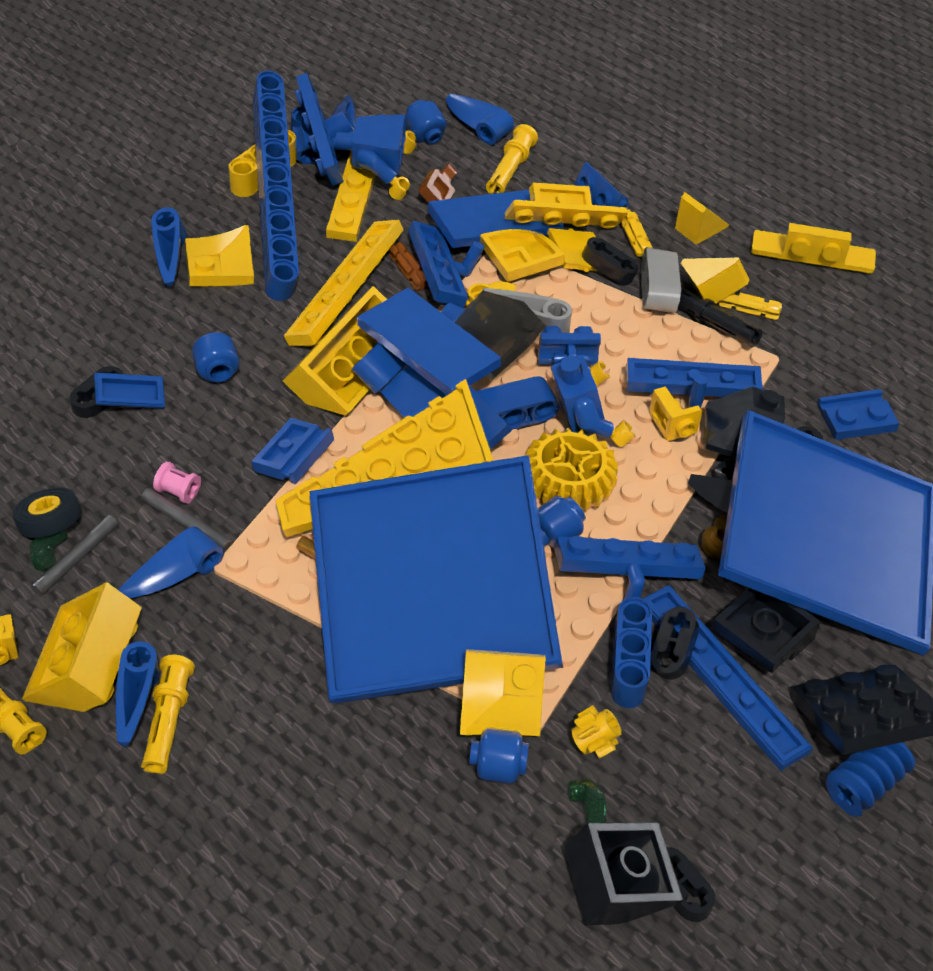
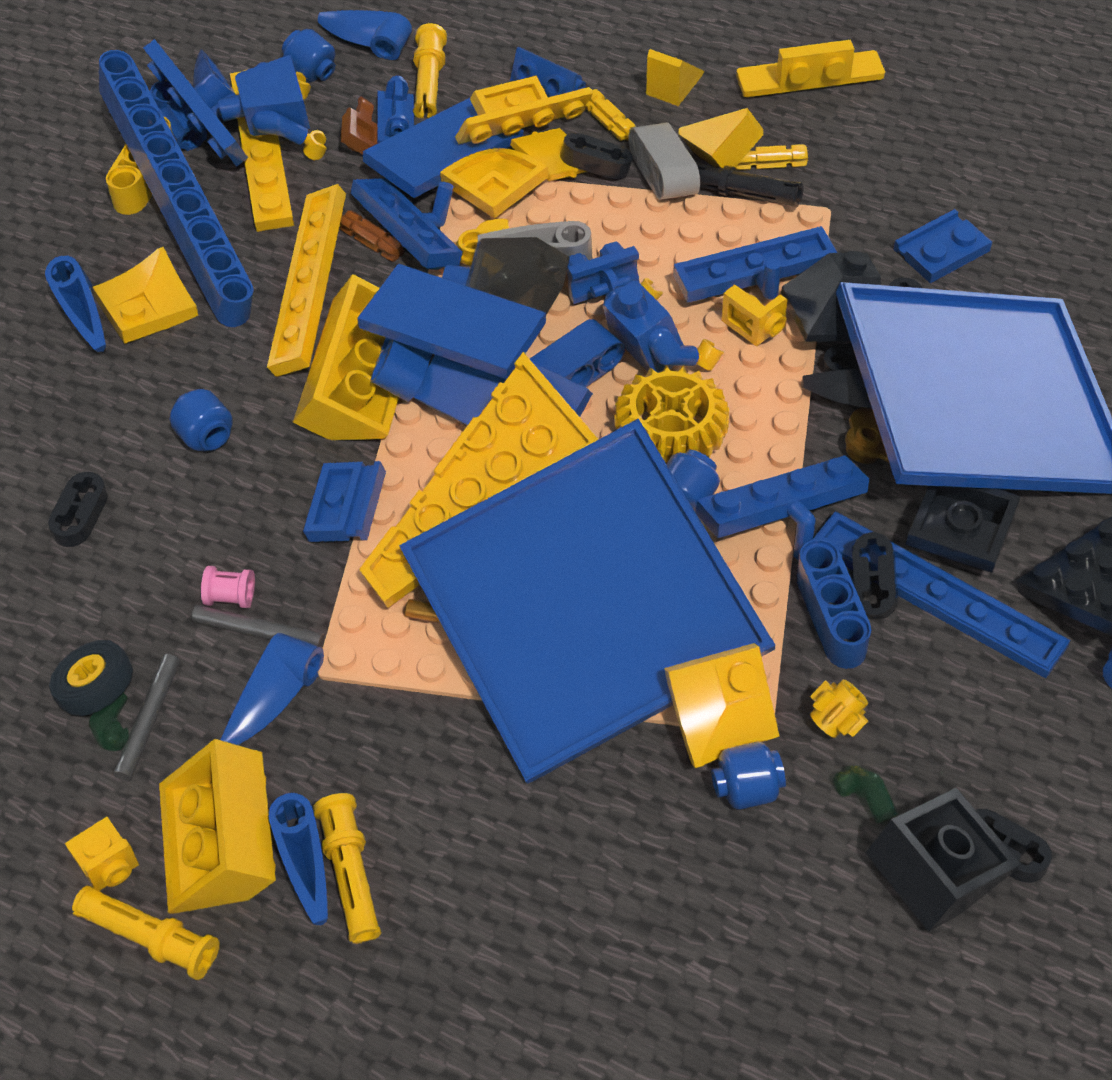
camera: 15 degrees left, 5 degrees up
(129, 390) = (117, 495): blue tile -> none
(472, 179) = (394, 109): none -> blue hinge

